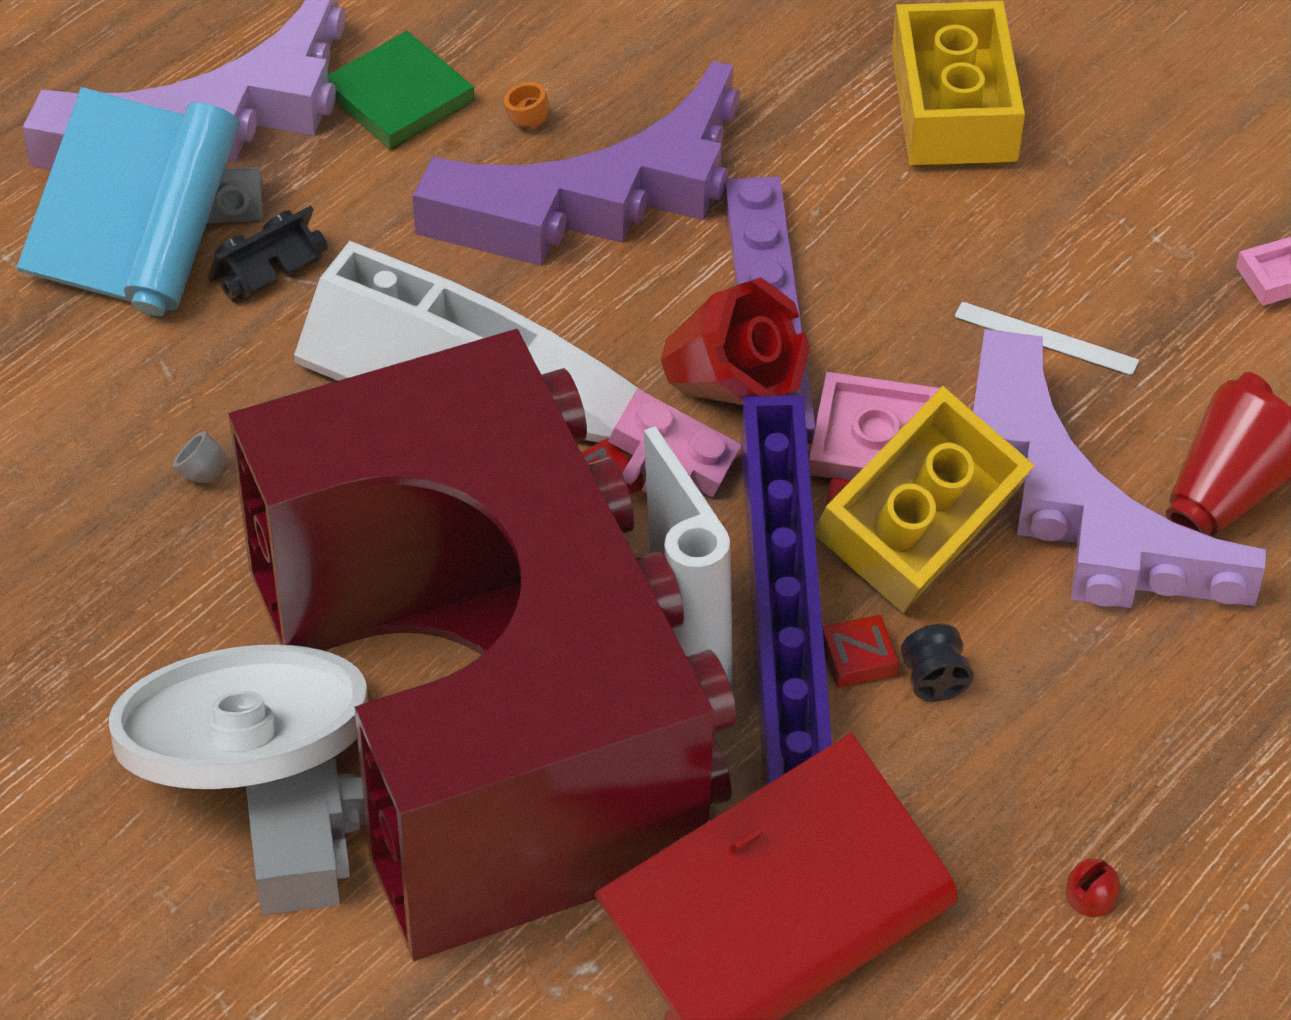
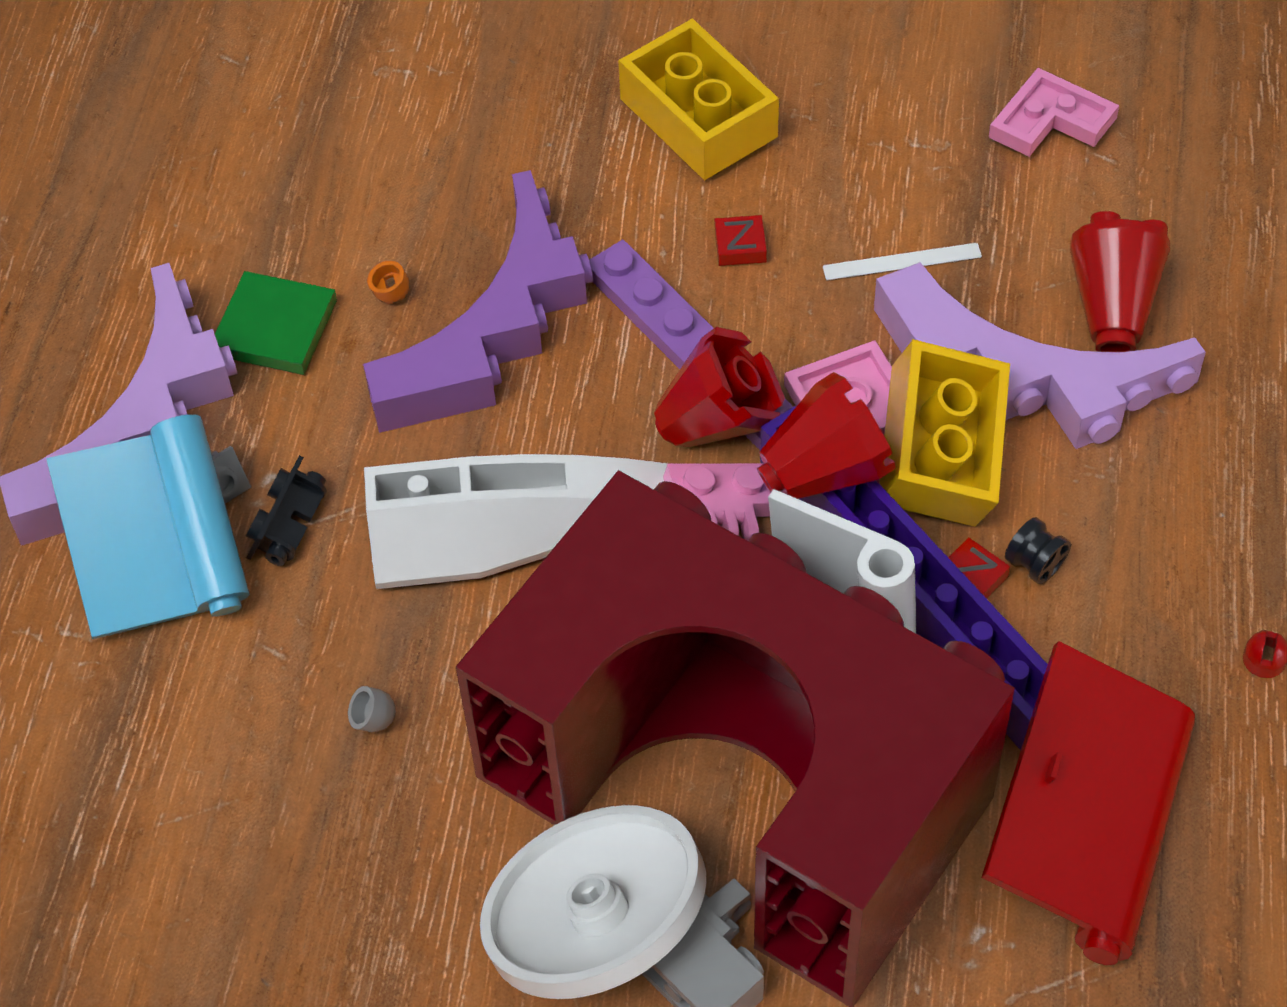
camera: 30 degrees left, 5 degrees up
(772, 434) = (825, 444): none -> red cone
(896, 236) = (740, 240): none -> red tile

